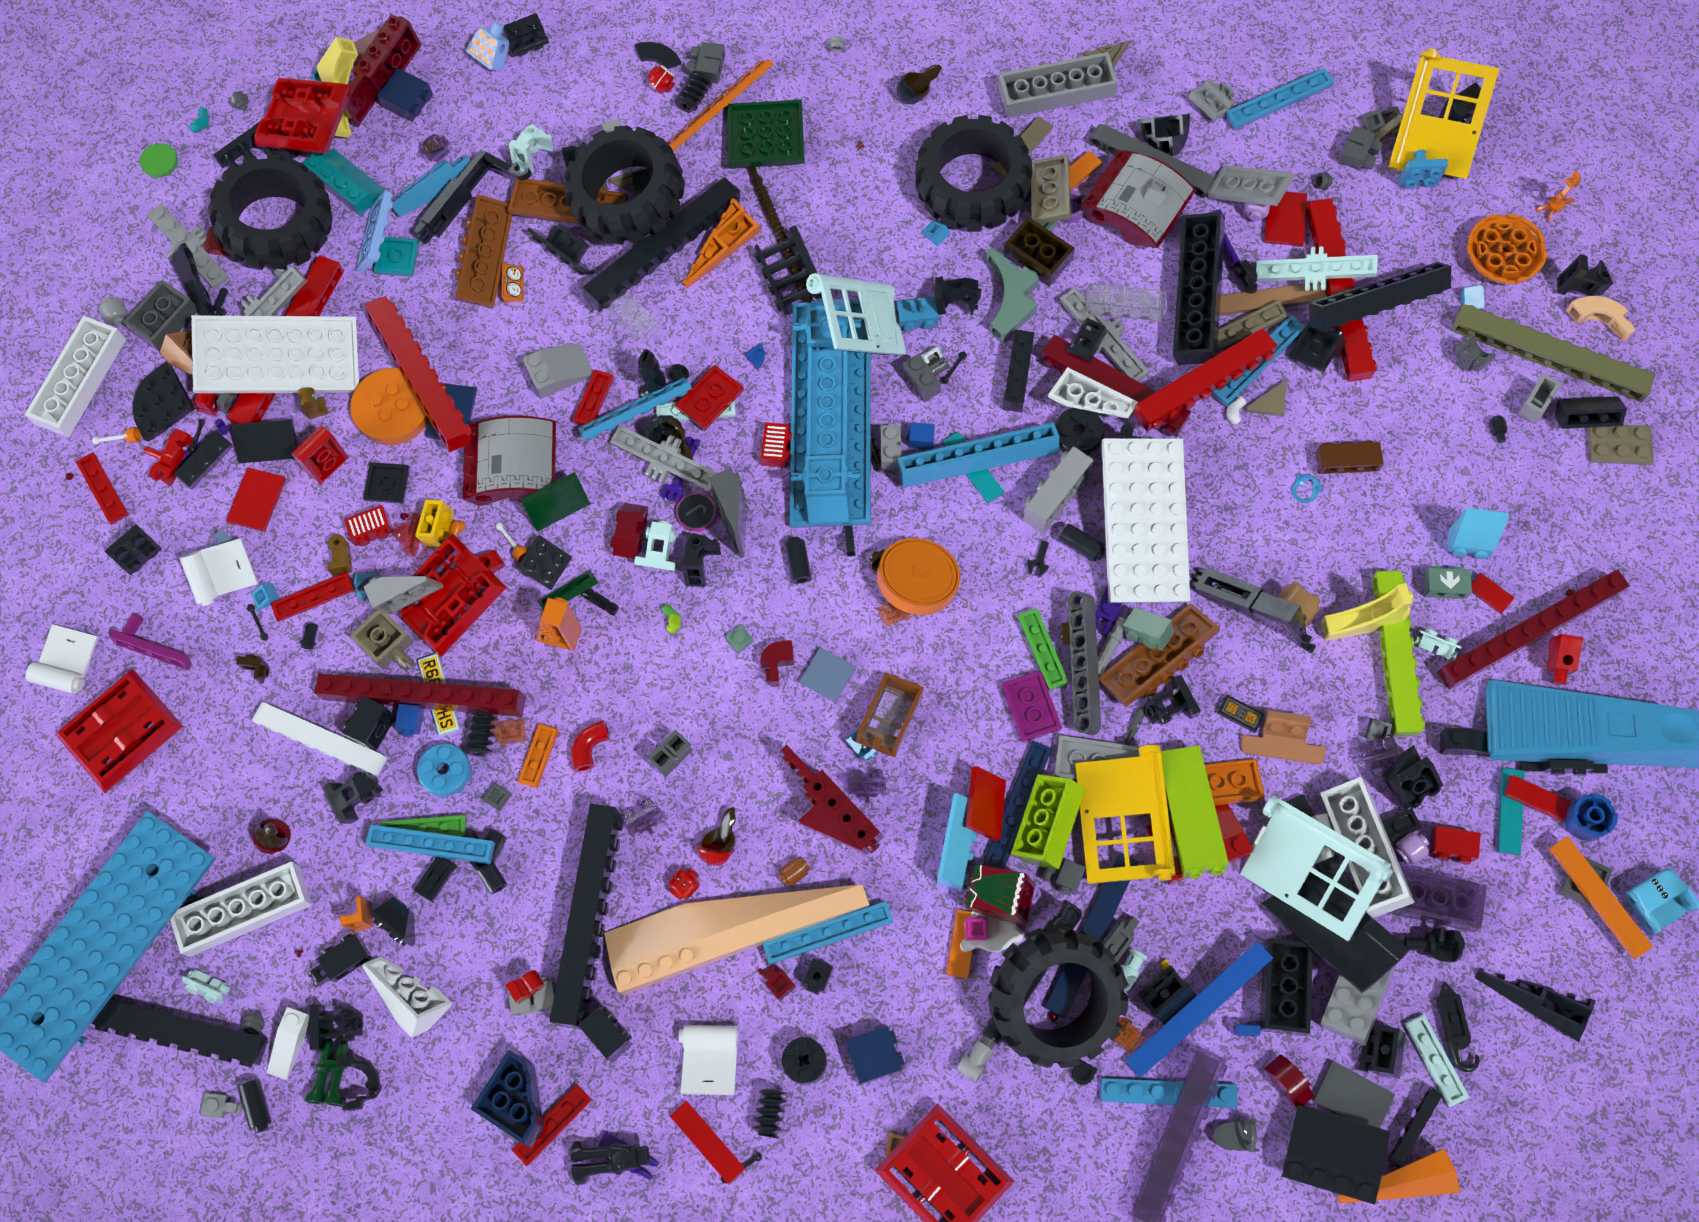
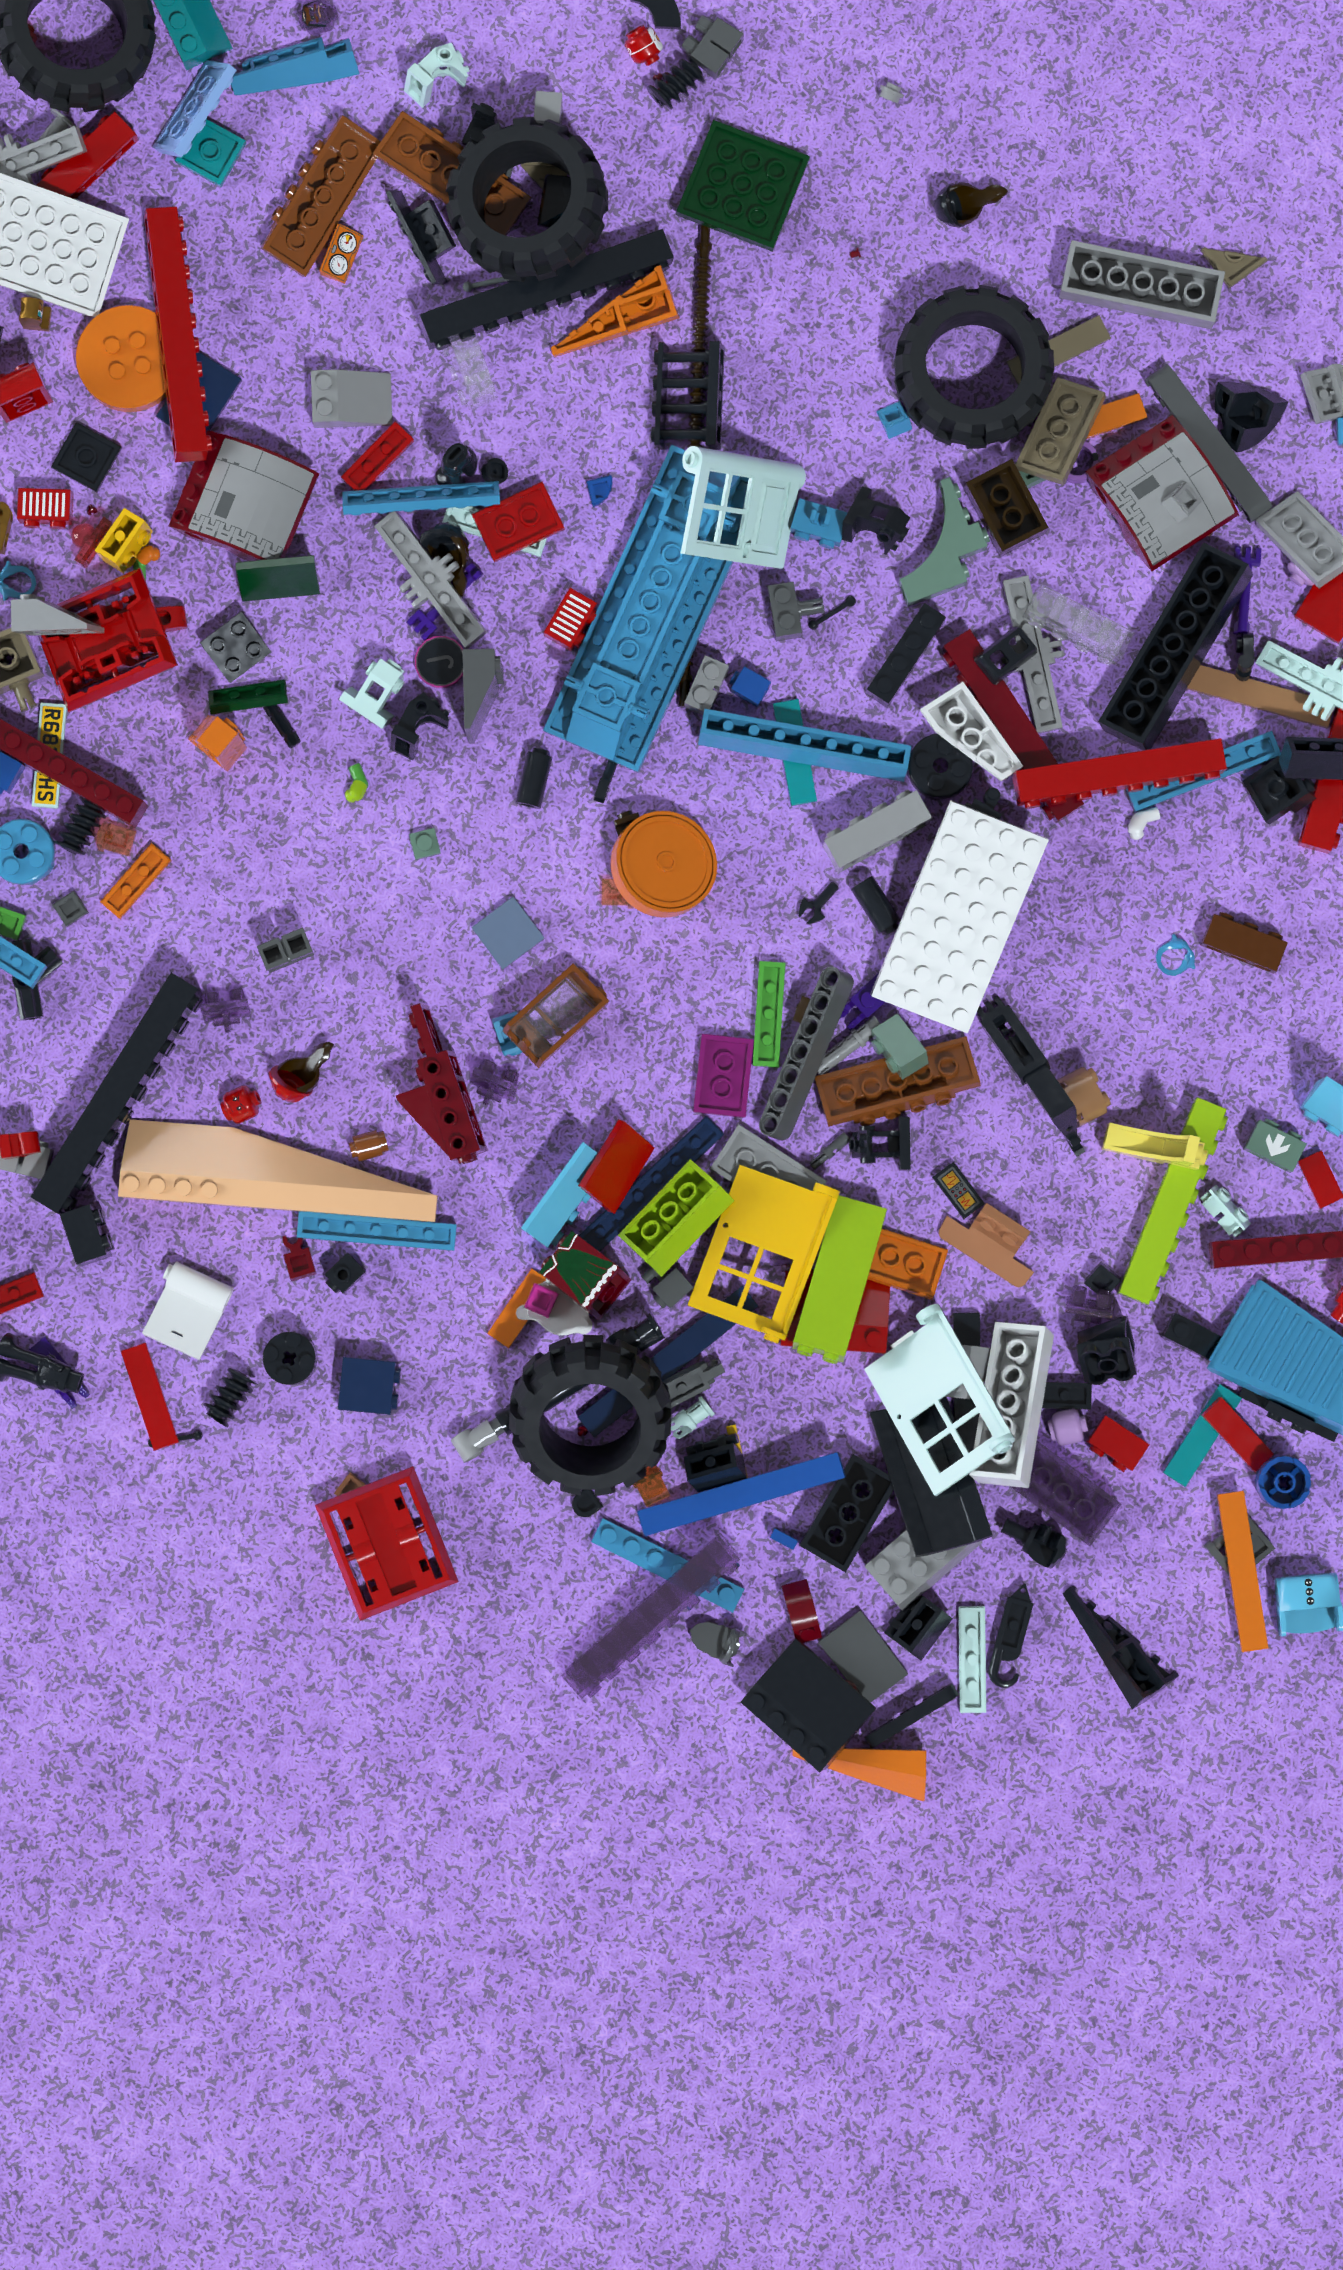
camera: 20 degrees right, 15 degrees up
(459, 191) = (322, 97): black hinge -> none
(518, 550) = (210, 618): hinge -> none
(585, 742) = (194, 891): red cylinder -> none
(629, 528) = (355, 647): dark red brick -> none
(722, 101) = (694, 118): orange tile -> none
(774, 656) = (456, 884): dark red brick -> none
(932, 355) = (811, 587): light grey slope -> none
(1250, 324) = (1217, 720): dark tan tile -> none
(1270, 403) = (1190, 831): dark tan tile -> none

